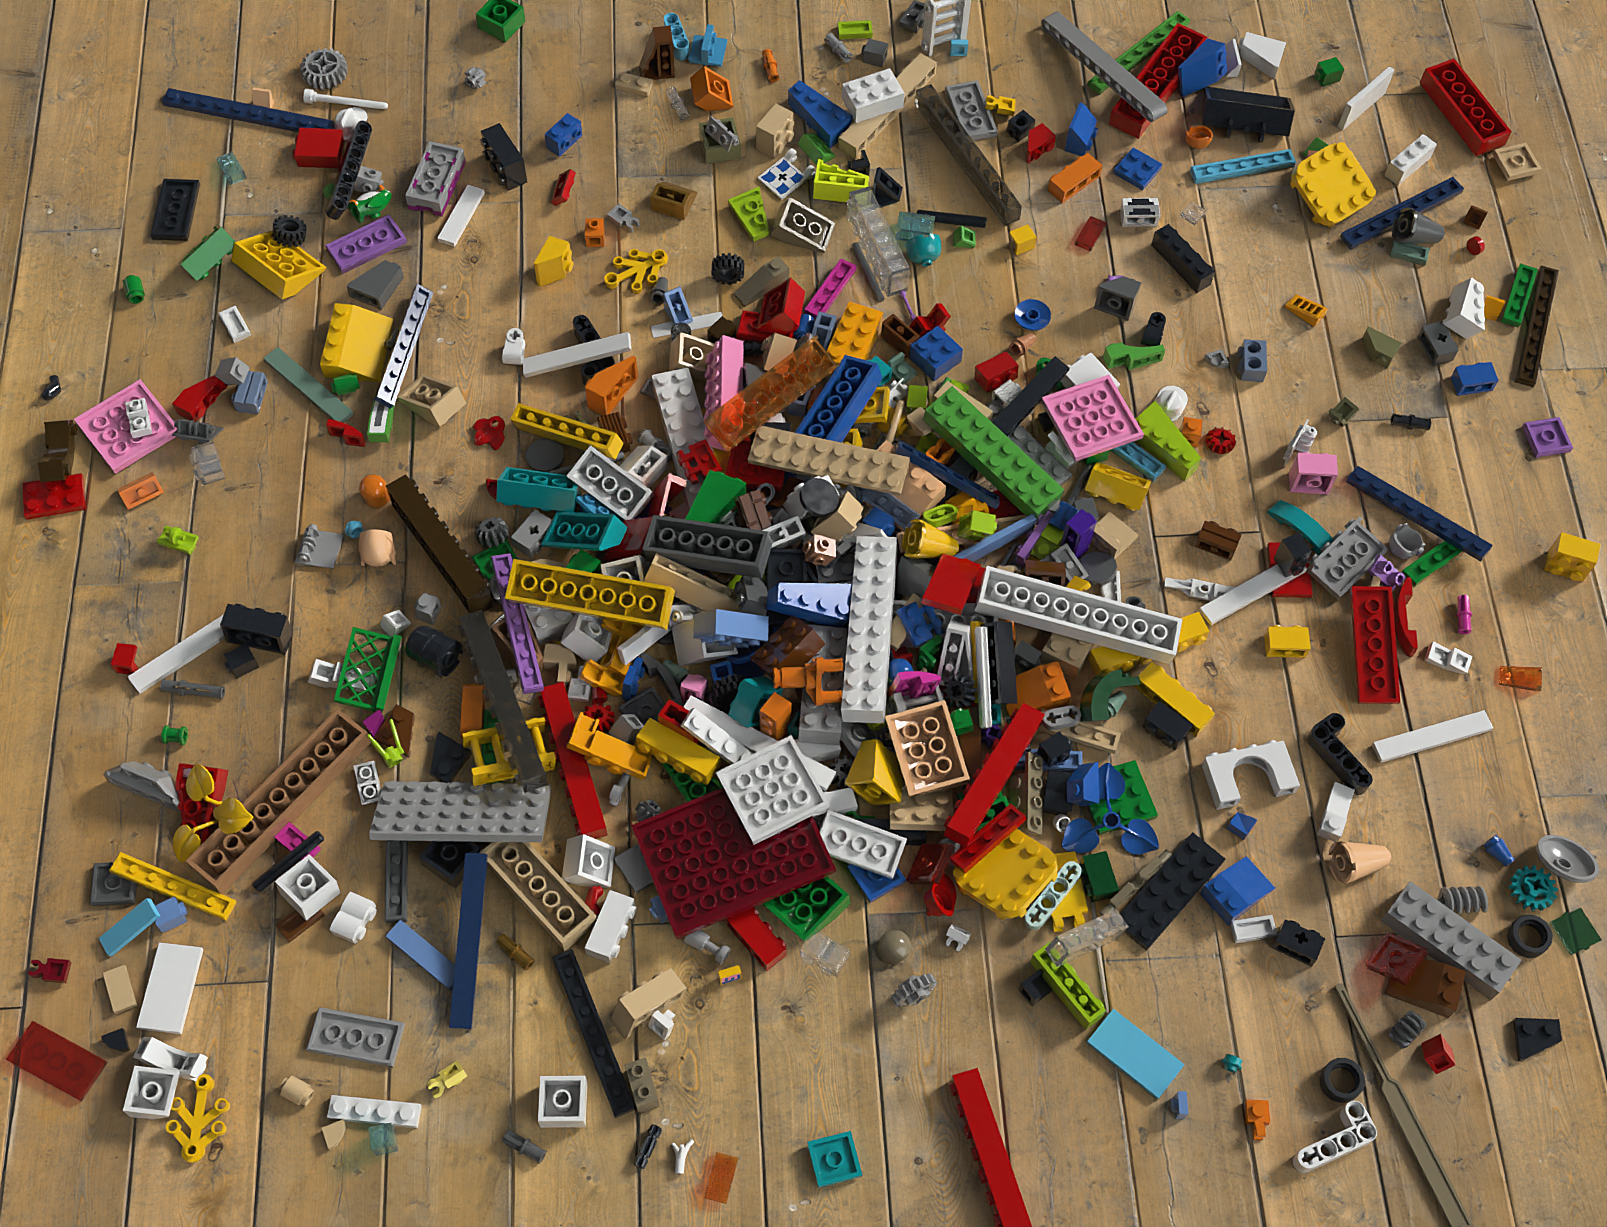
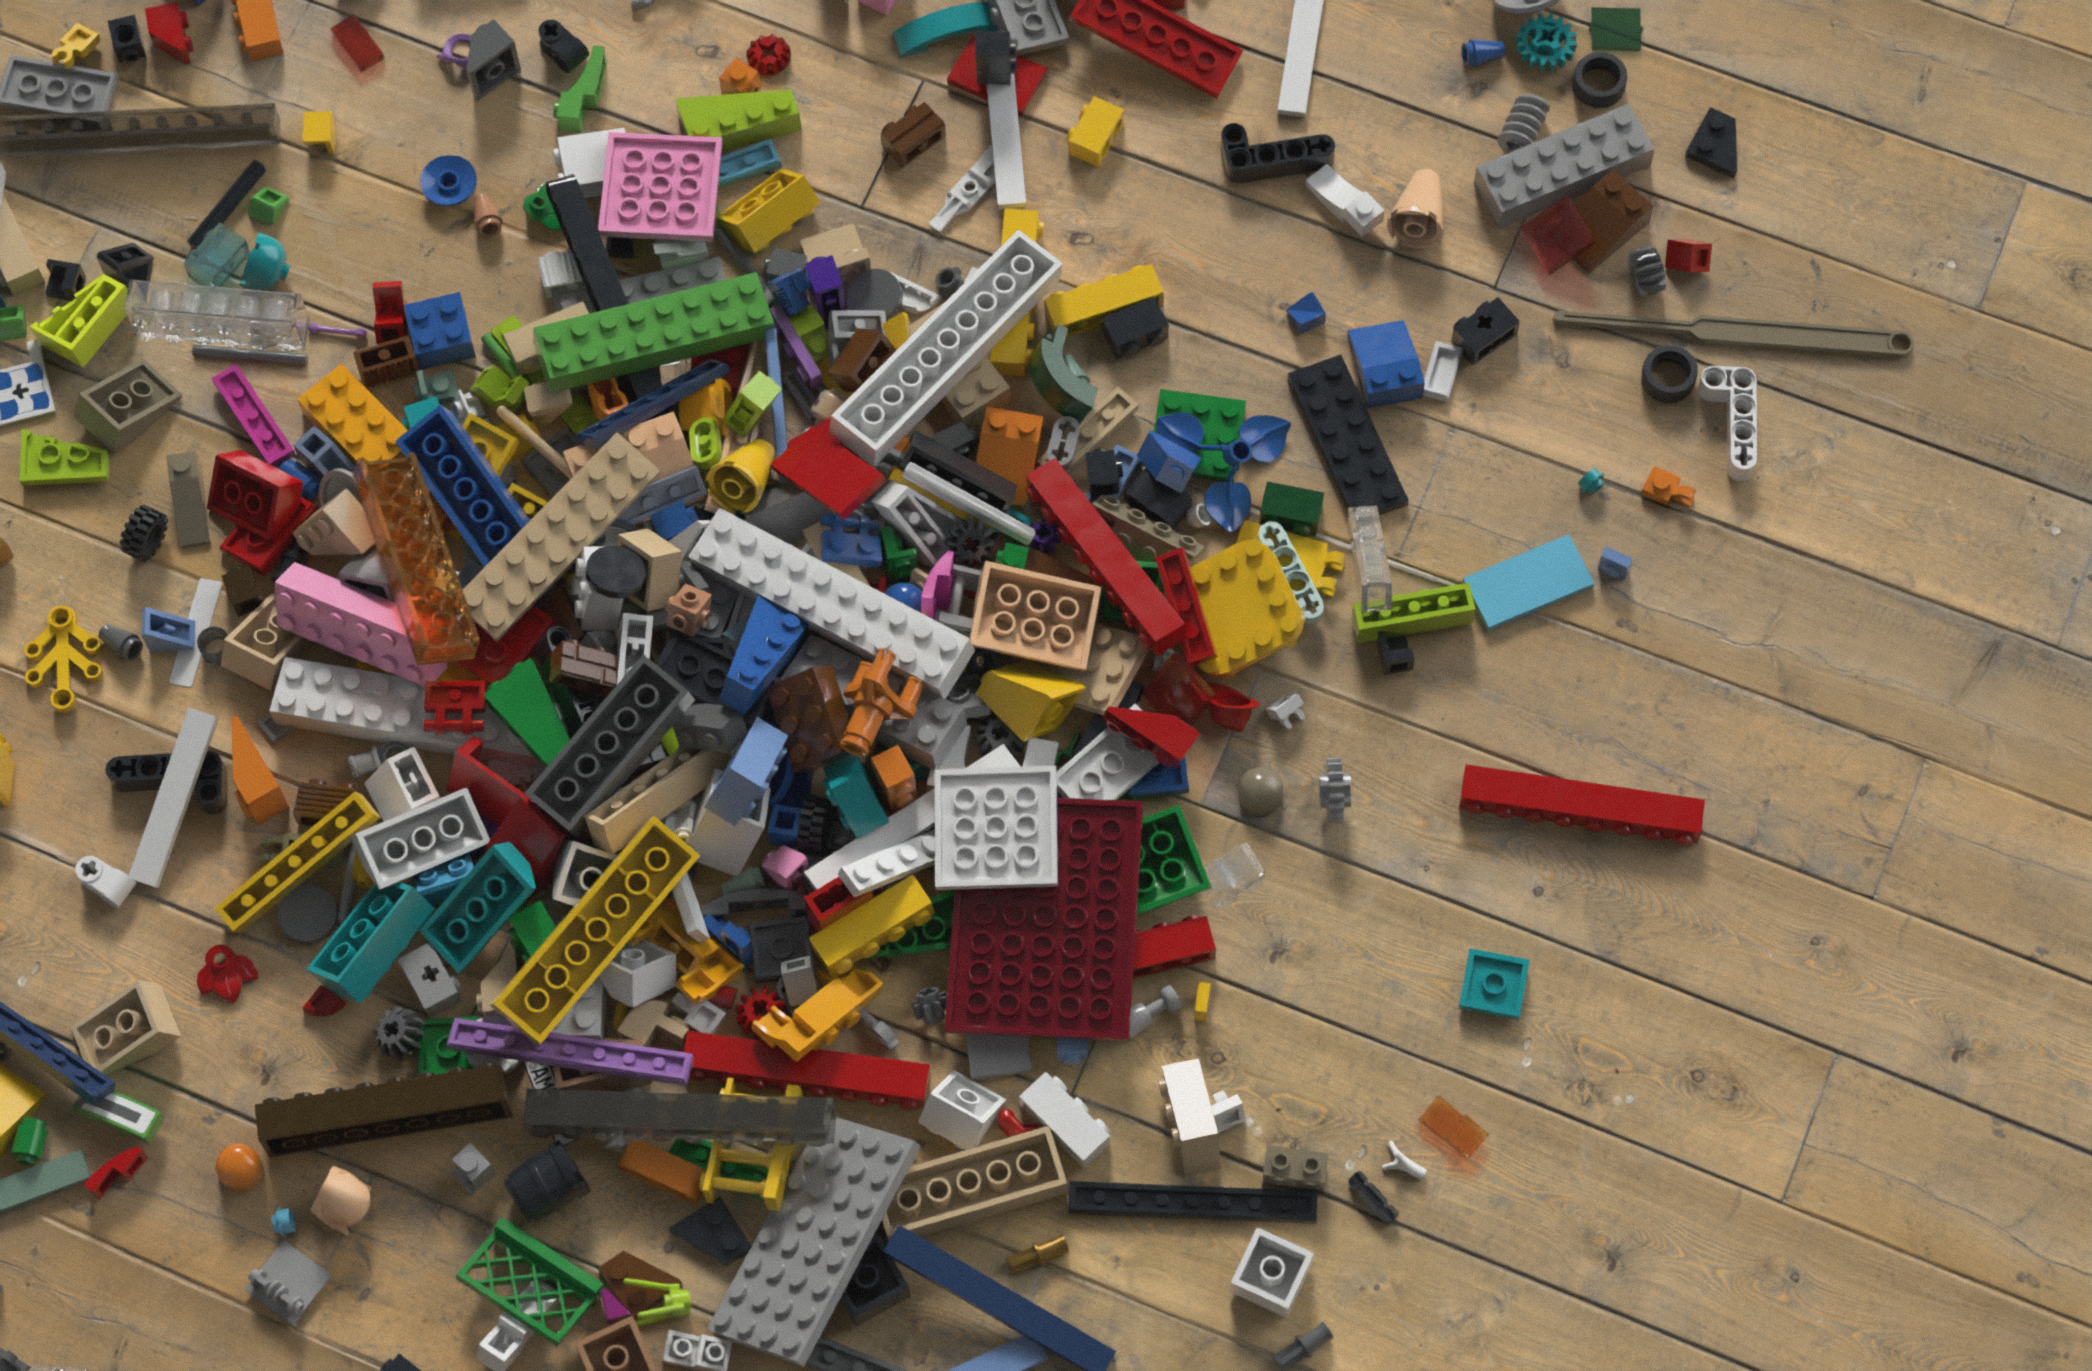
camera: 60 degrees left, 5 degrees up
(394, 623) = (466, 1224): white slope -> none
(892, 862) = (1158, 733): none -> red slope
(996, 371) = (515, 269): red brick -> none
(1141, 878) = (1323, 477): dark tan piece -> none
(1172, 401) = (675, 80): white piece -> none
(1270, 757) = (1242, 233): white arch -> none

